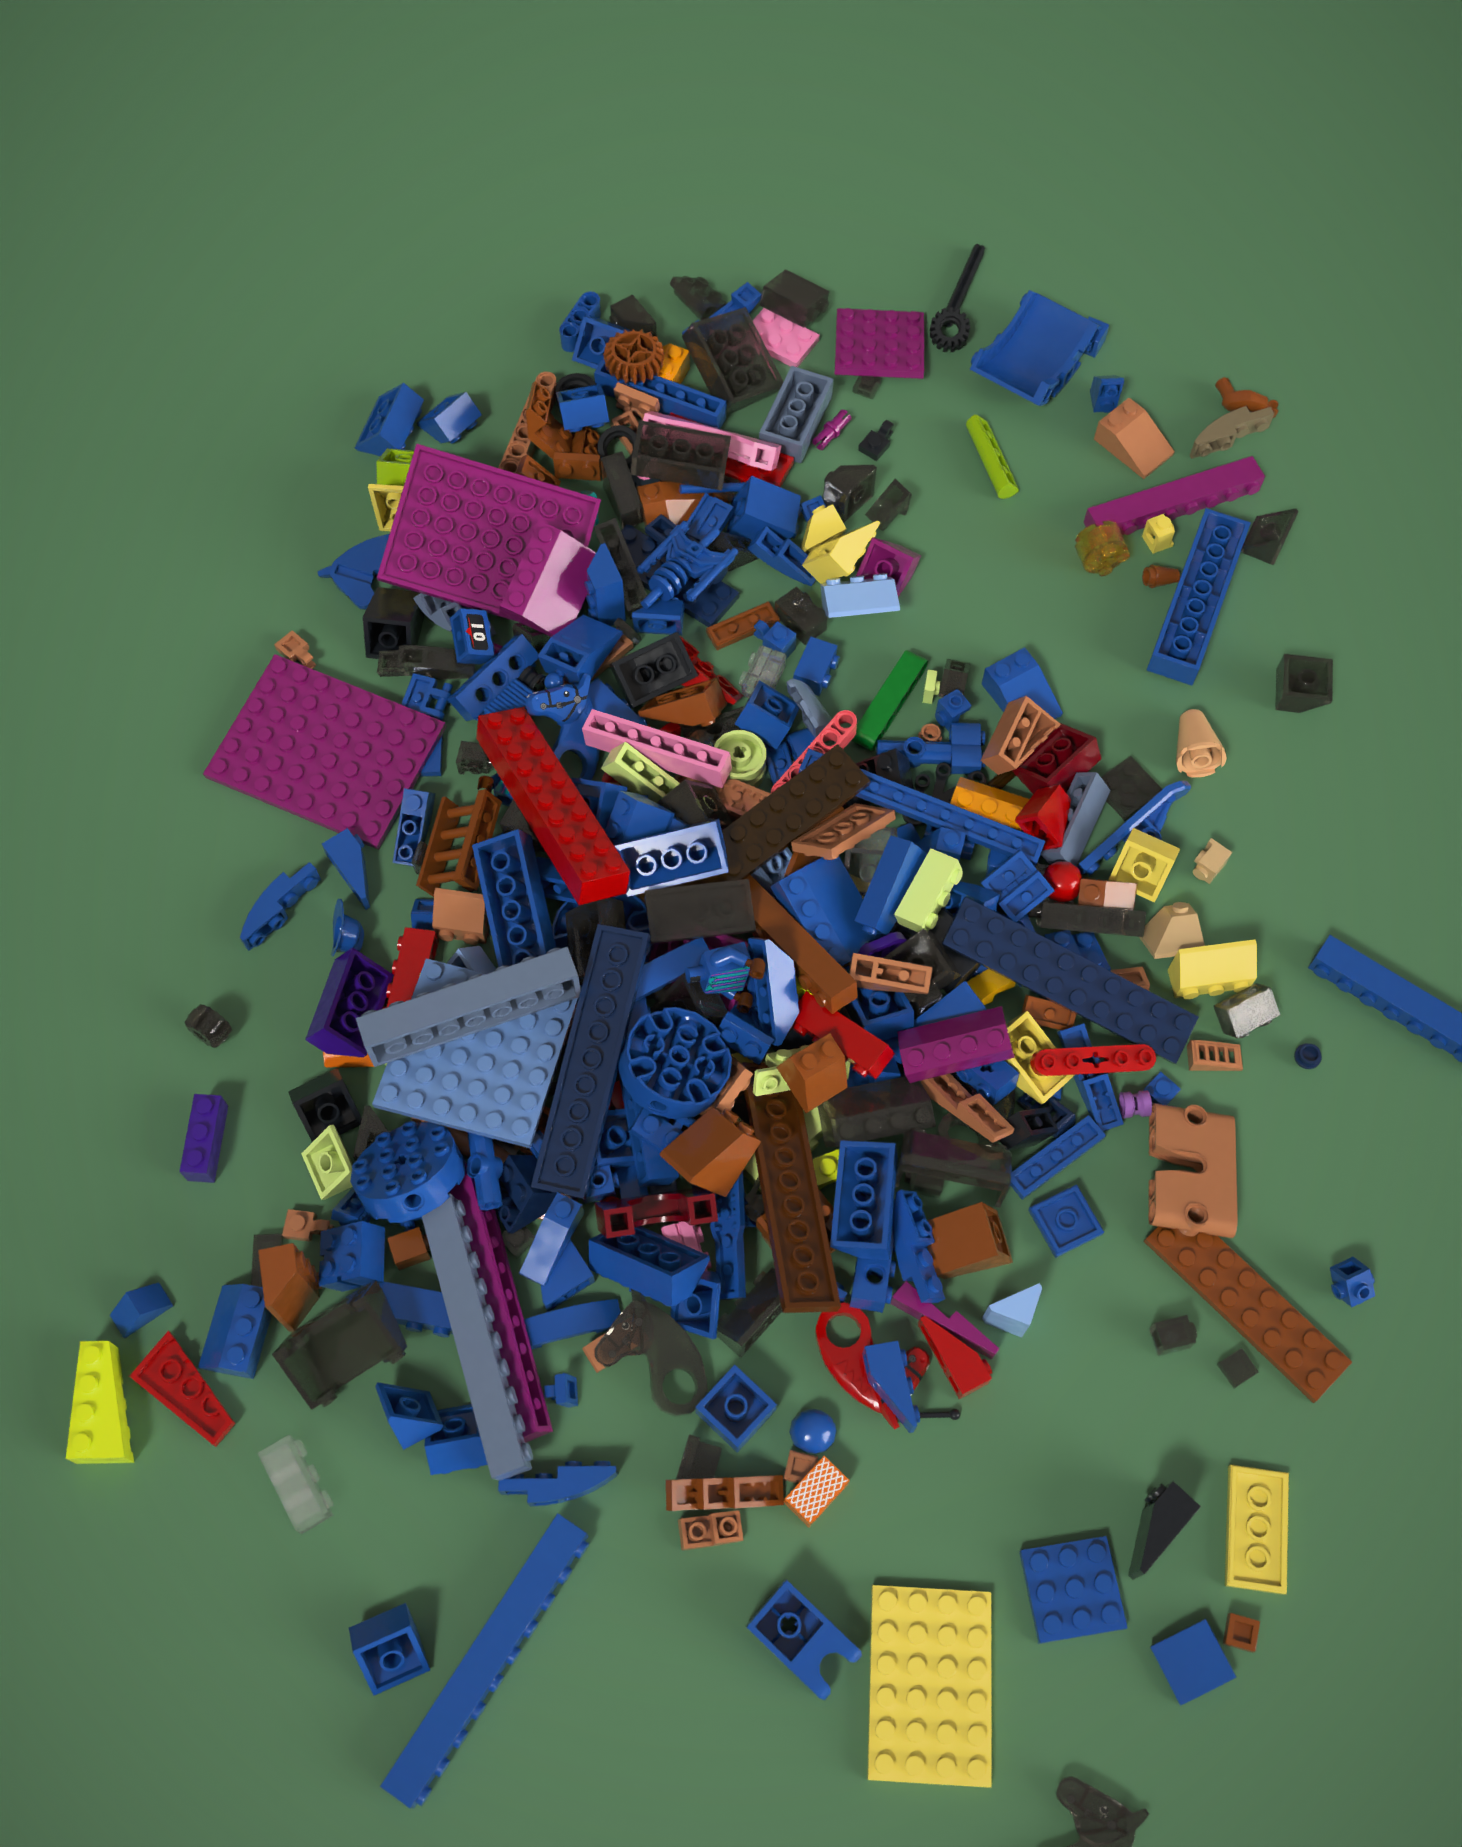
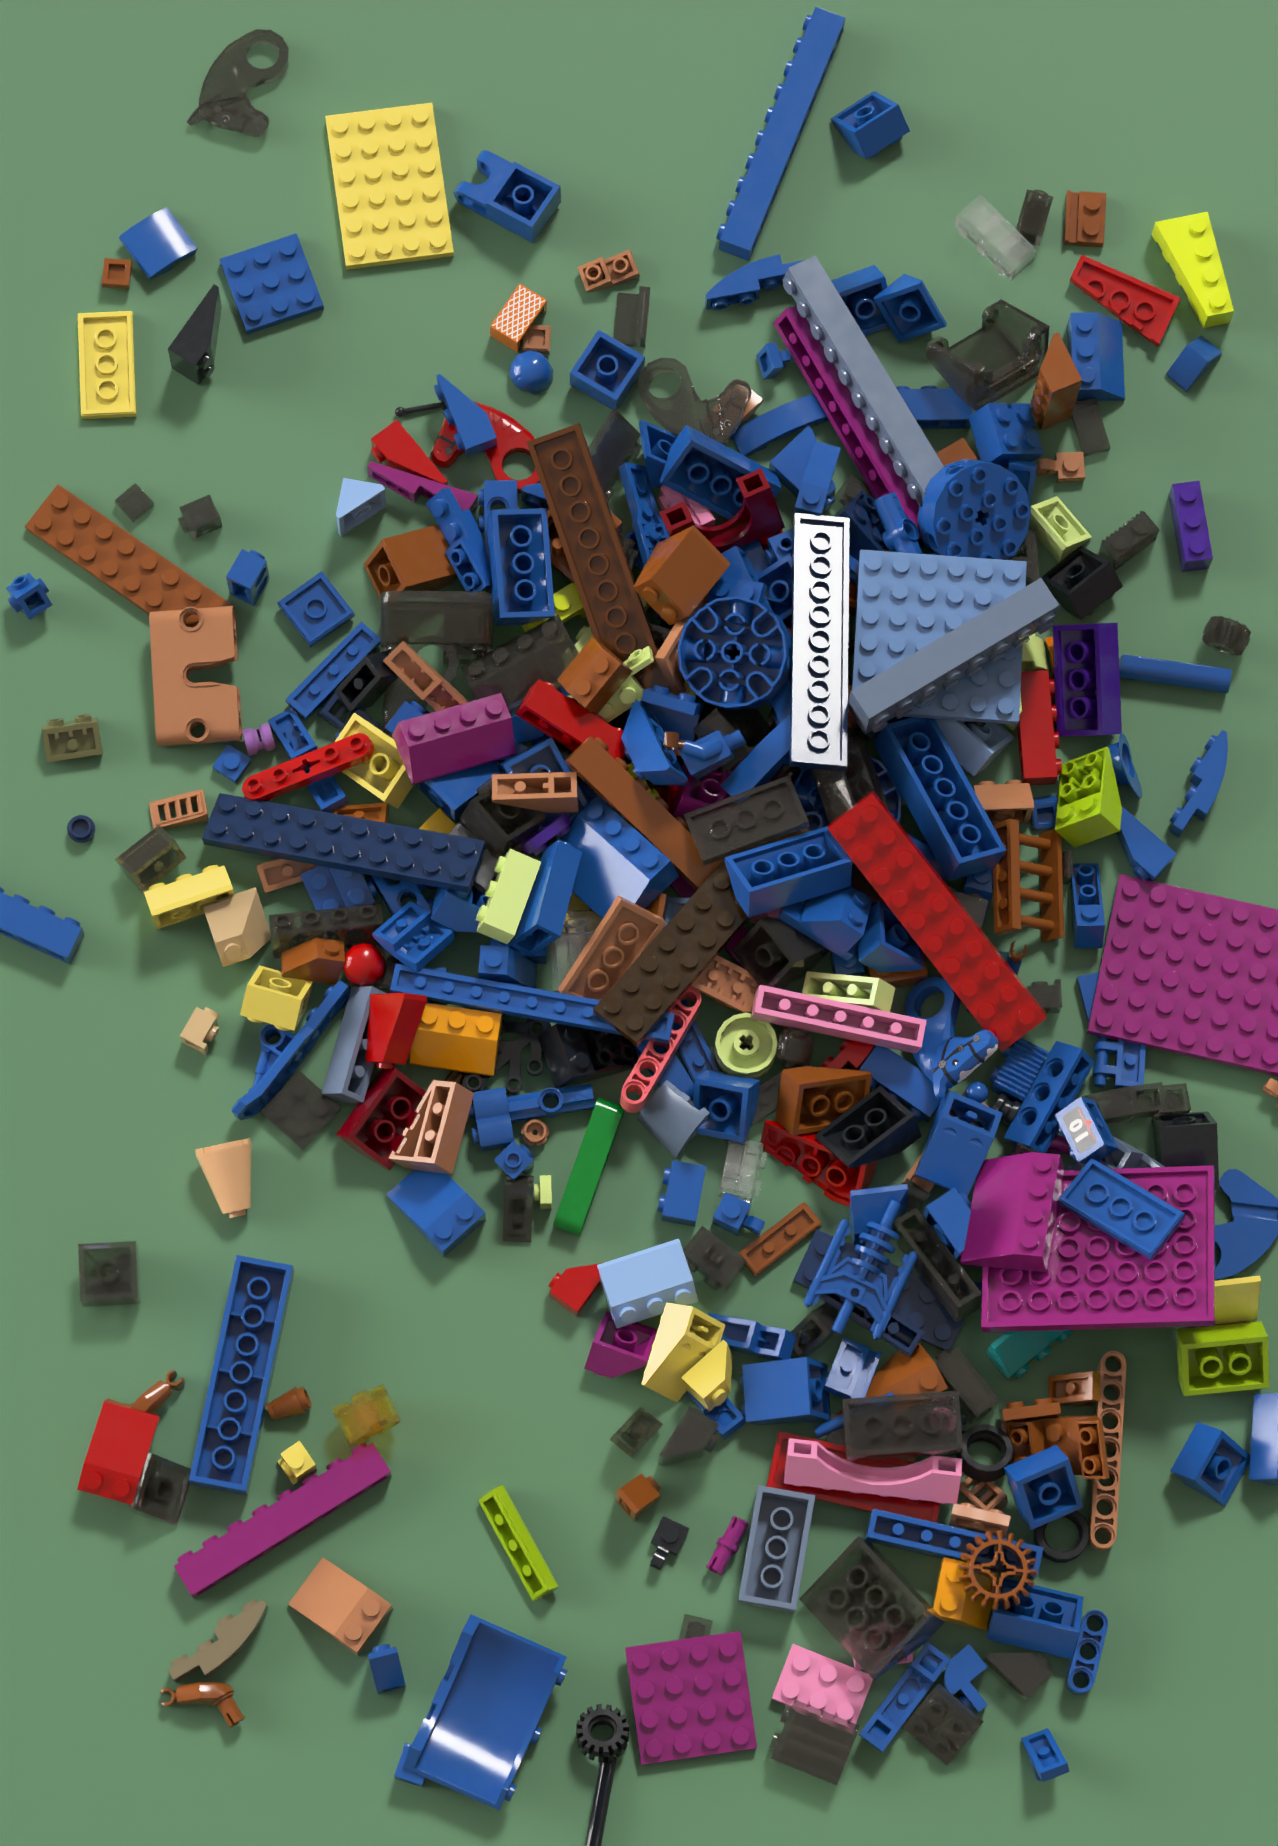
camera: 165 degrees right, 10 degrees up
(195, 1492) = (1085, 218): none -> dark orange plate
(248, 1494) = (1034, 216): none -> clear smoke slope
(264, 1006) = (1175, 673): none -> blue brick
(268, 1135) = (1128, 540): none -> clear smoke brick
(383, 905) = (1088, 799): none -> lime slope
(462, 560) = (1121, 1209): none -> blue tile
(629, 266) = (1044, 1755): none -> blue slope
(673, 321) = (958, 1675): none -> blue brick
(724, 1492) = (601, 299): dark orange slope -> none
(896, 462) = (638, 1495): none -> dark orange slope
(914, 616) = (575, 1287): none -> red slope
(1132, 1256) = (248, 576): none -> blue brick
(1278, 591) = (157, 1395): none -> dark orange arm
(1304, 555) = (118, 1452): none -> red slope
(1314, 1140) = (71, 738): none -> olive bracket

